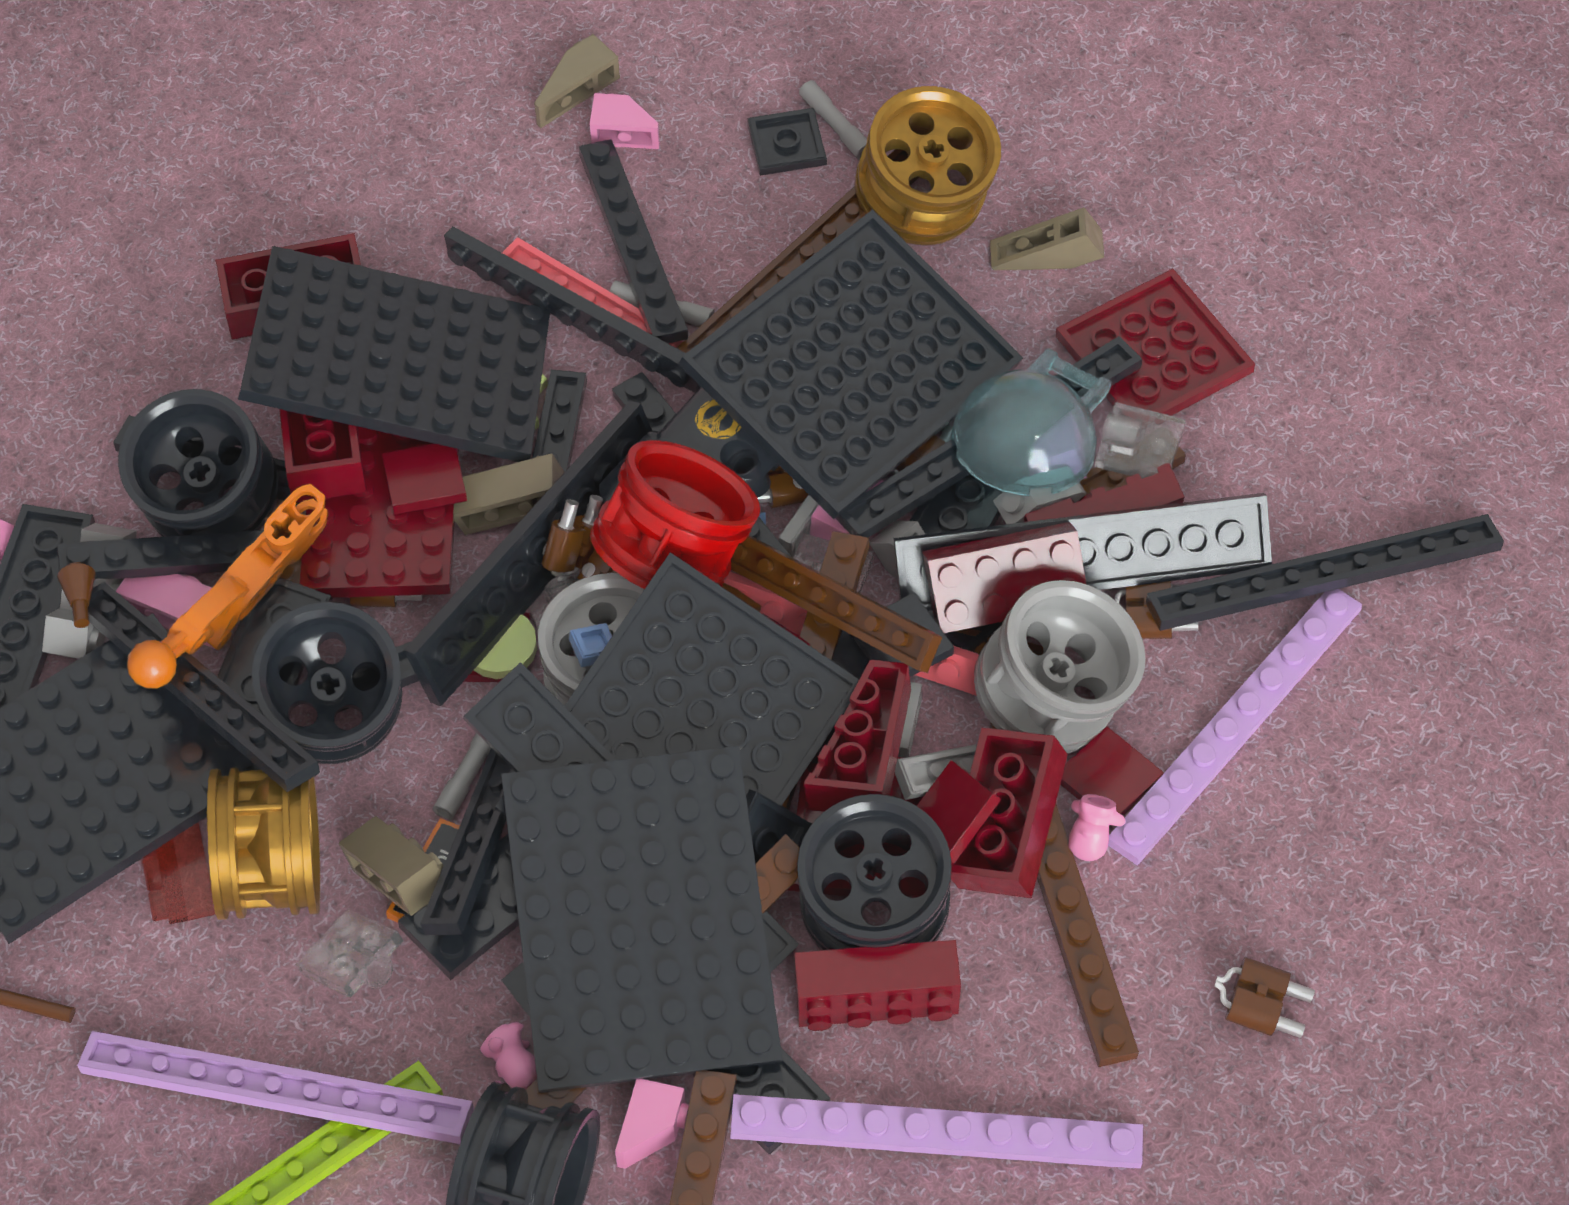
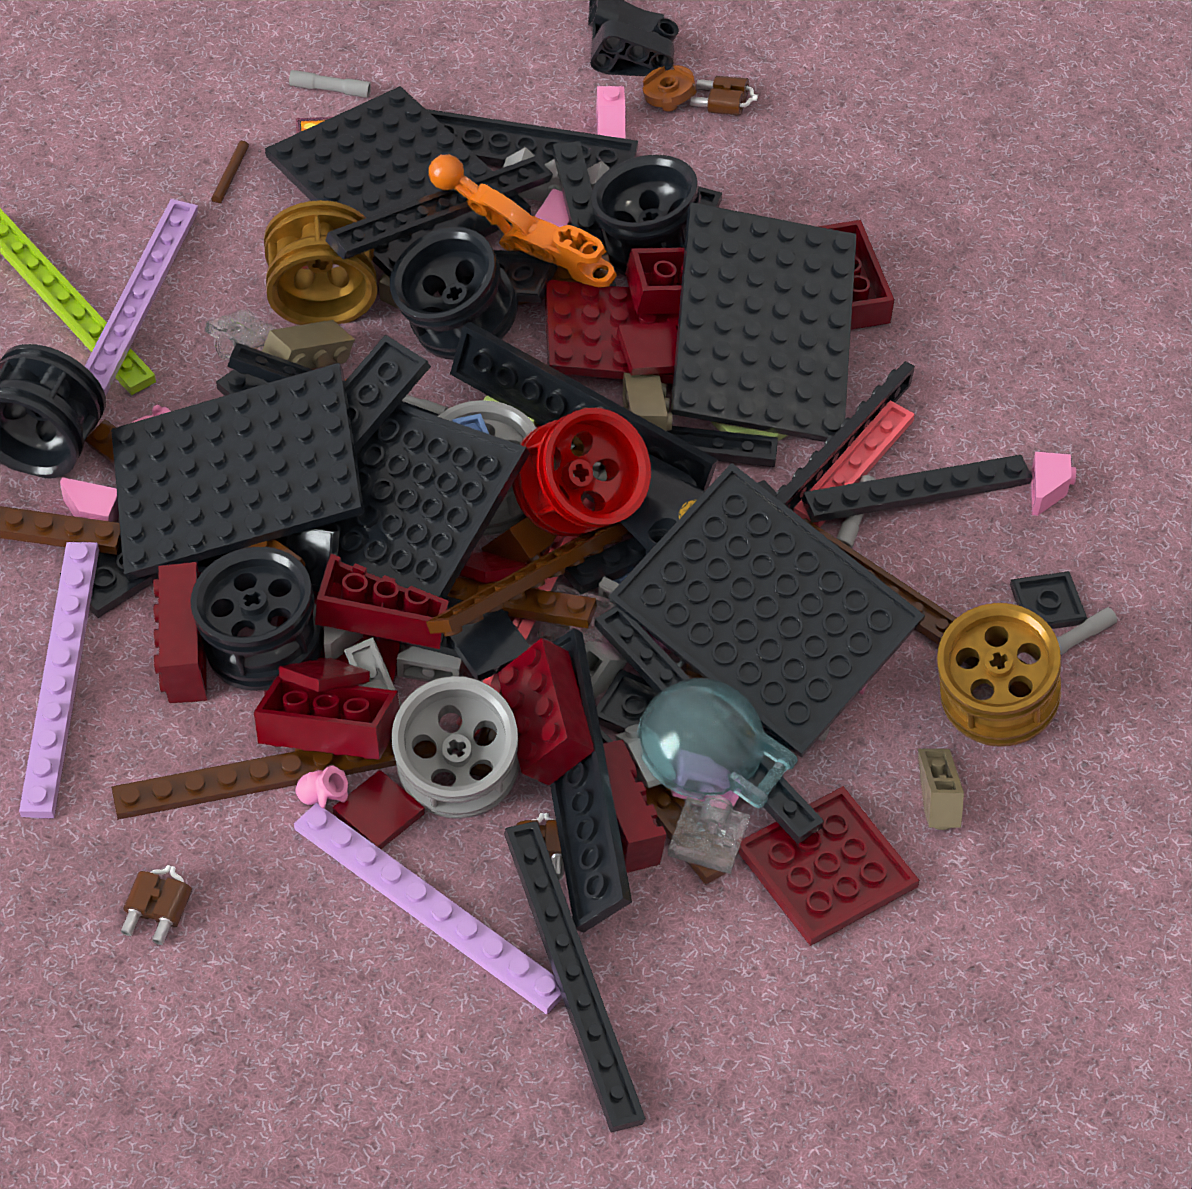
camera: 85 degrees right, 5 degrees down
(77, 583) = (539, 152): reddish brown cone -> none
(580, 74) = (1096, 450): dark tan slope -> none

